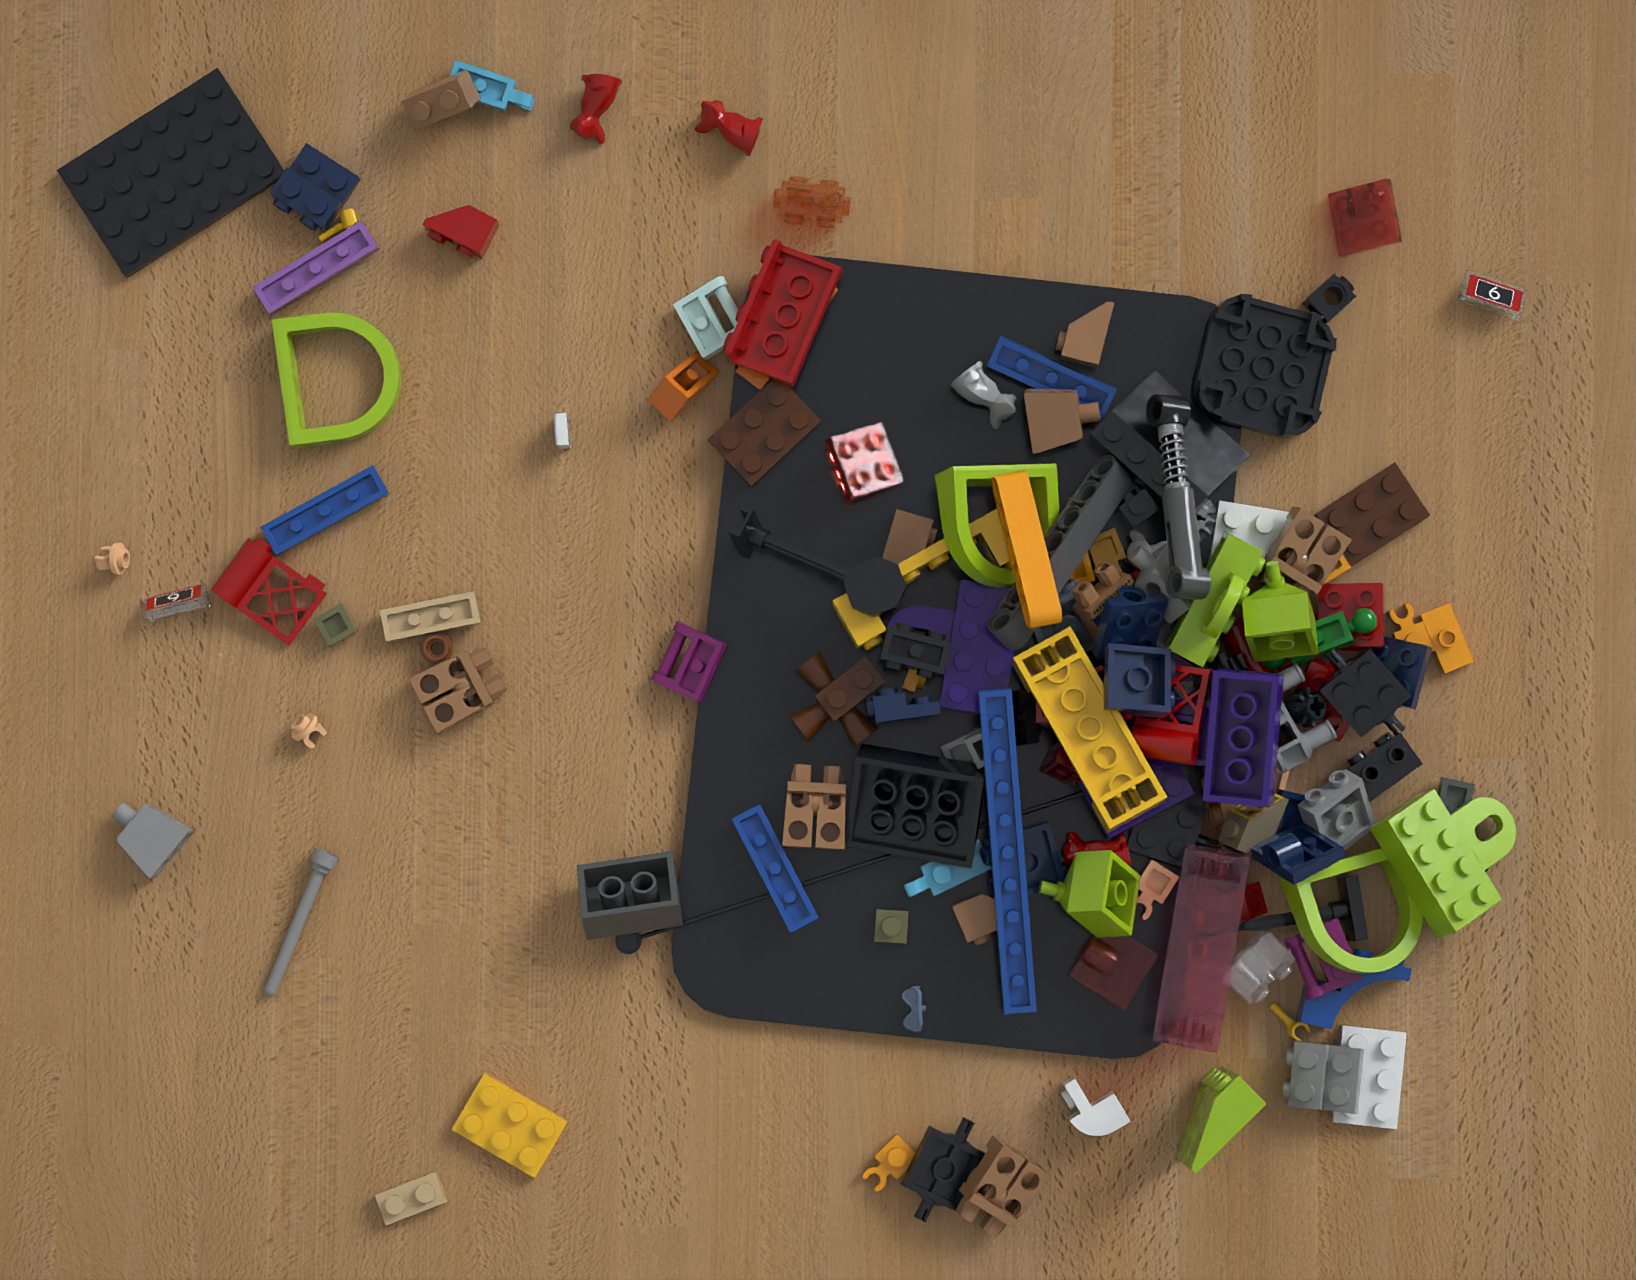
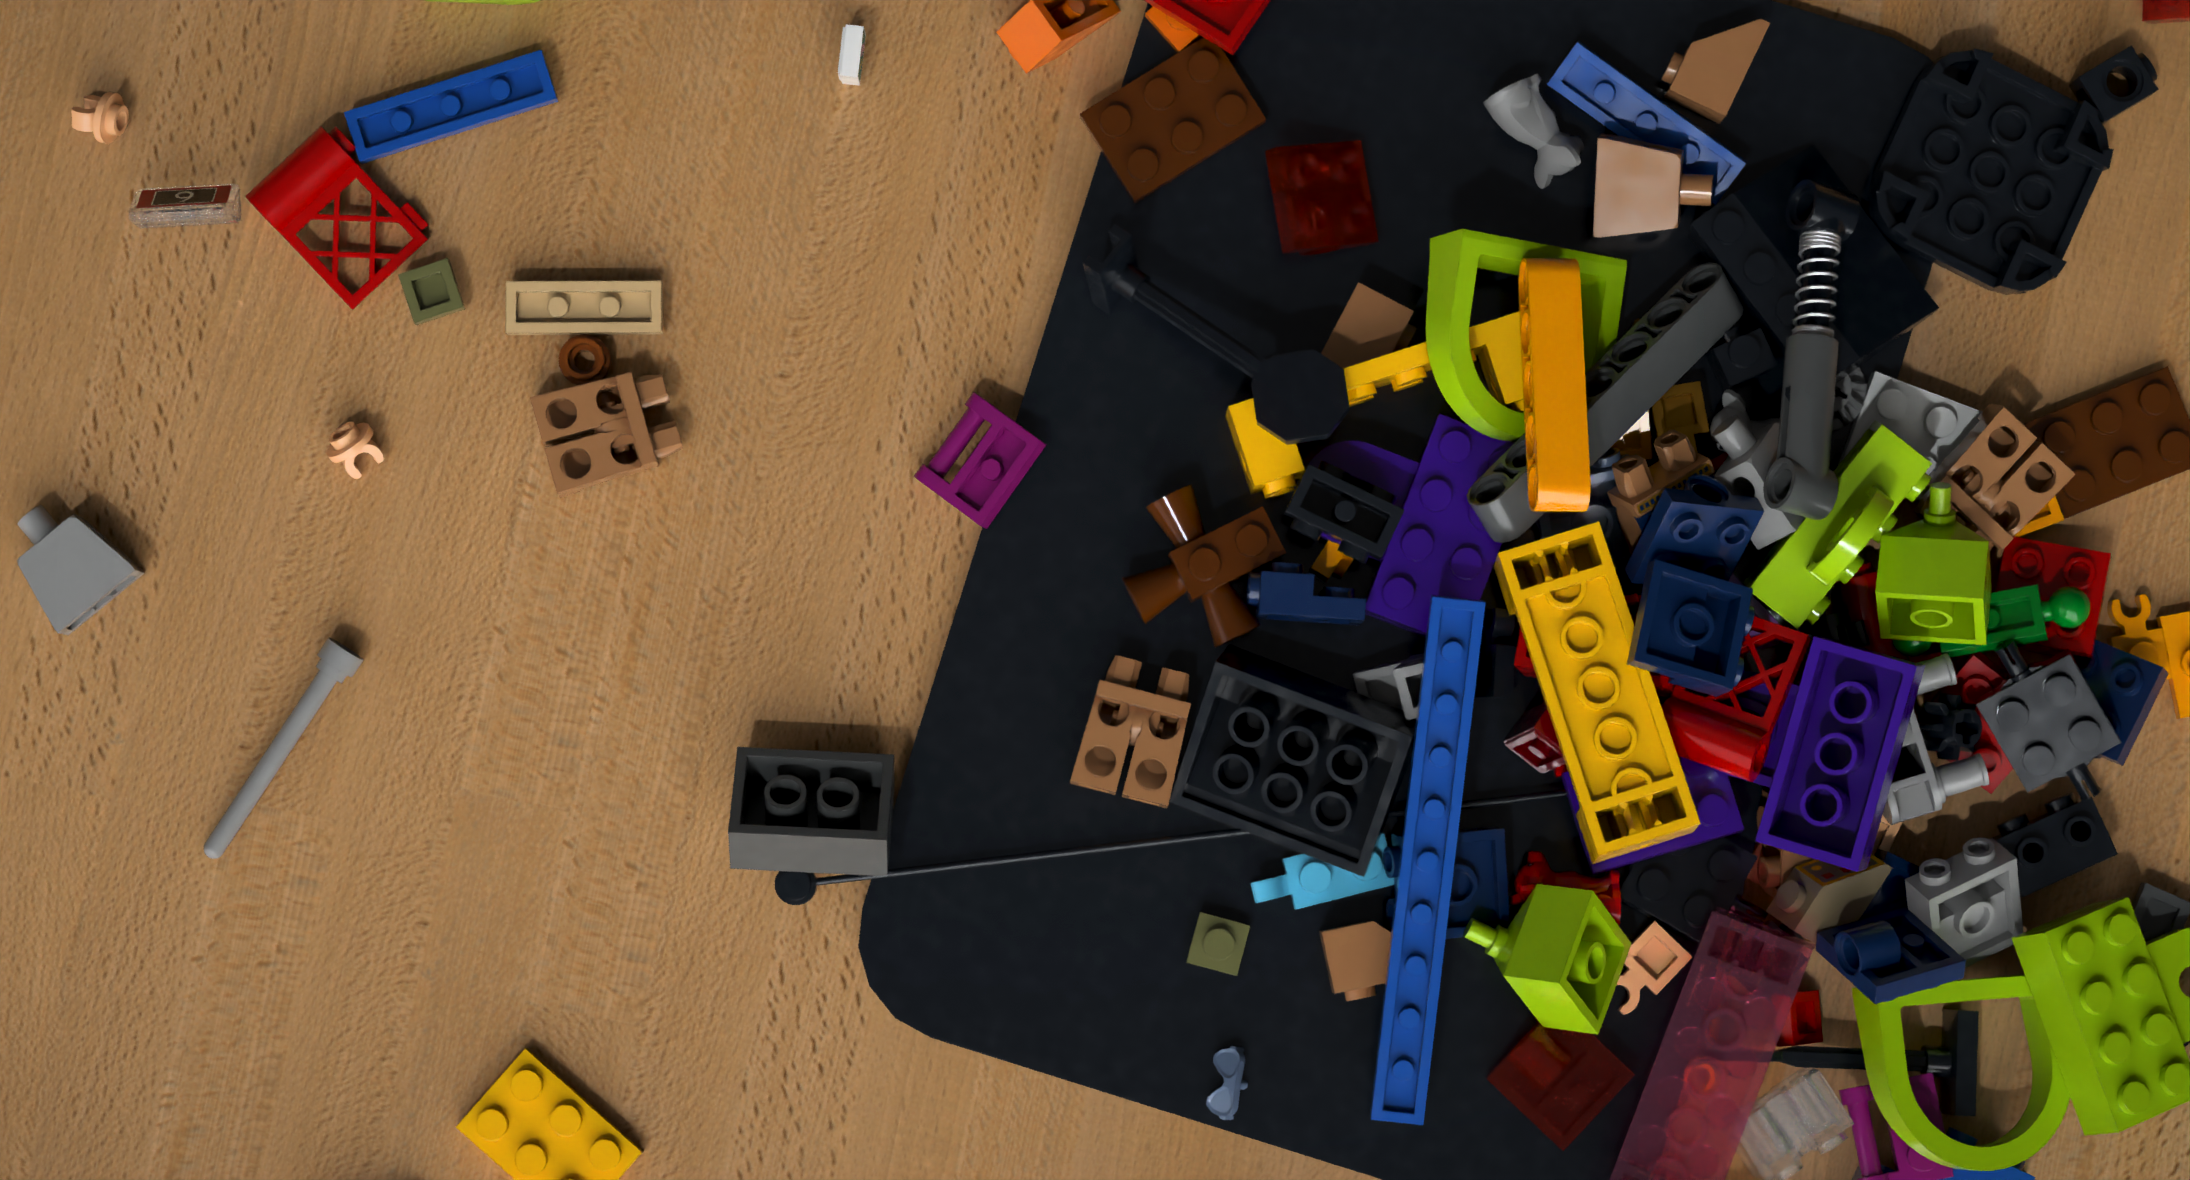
camera: 15 degrees right, 0 degrees up
(775, 869) = (1052, 816): blue plate -> none

